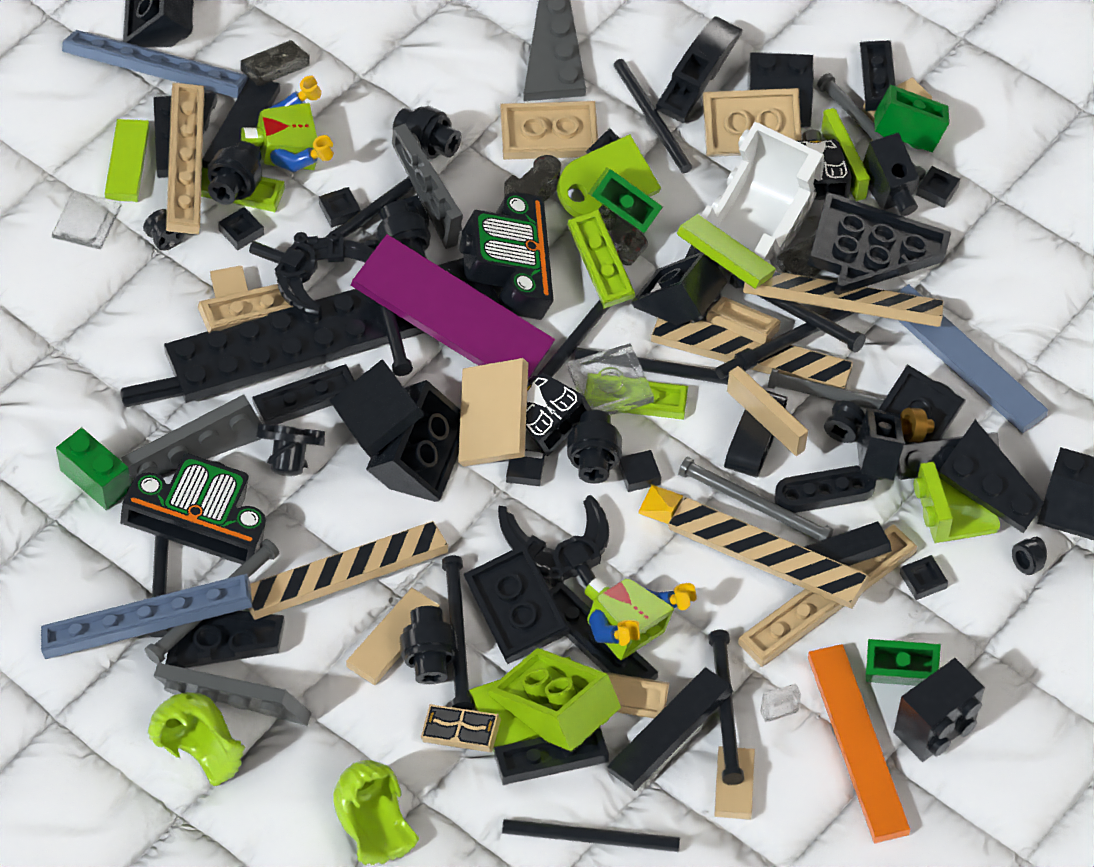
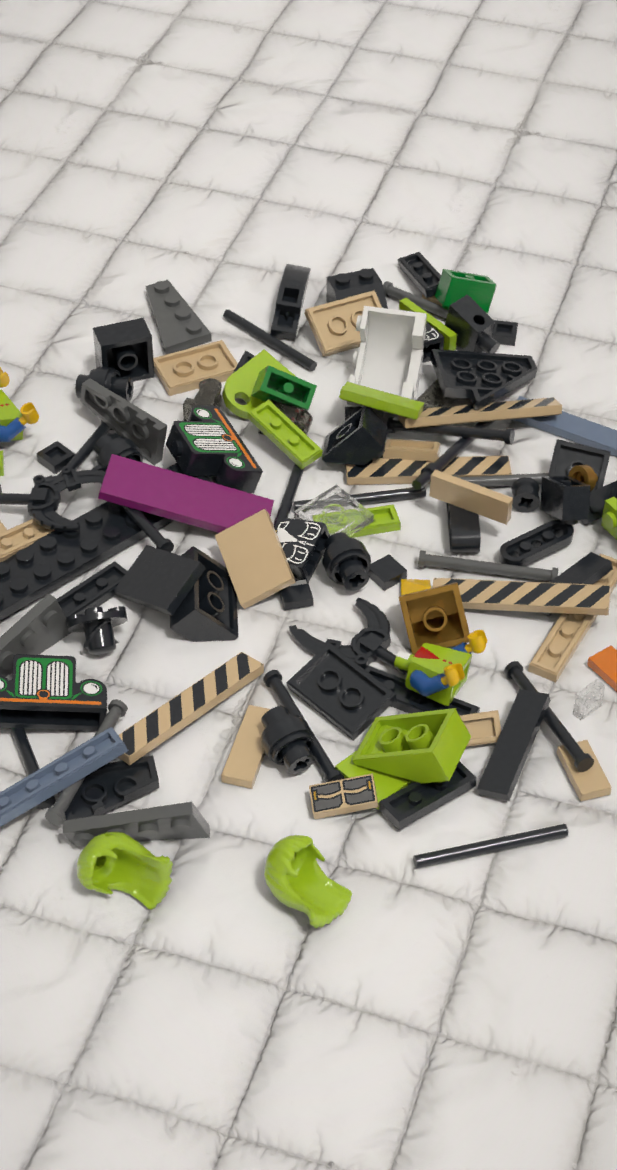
camera: 20 degrees left, 10 degrees down
(468, 89) = (125, 348): none -> black brick
(658, 547) = (435, 617): none -> pearl gold slope

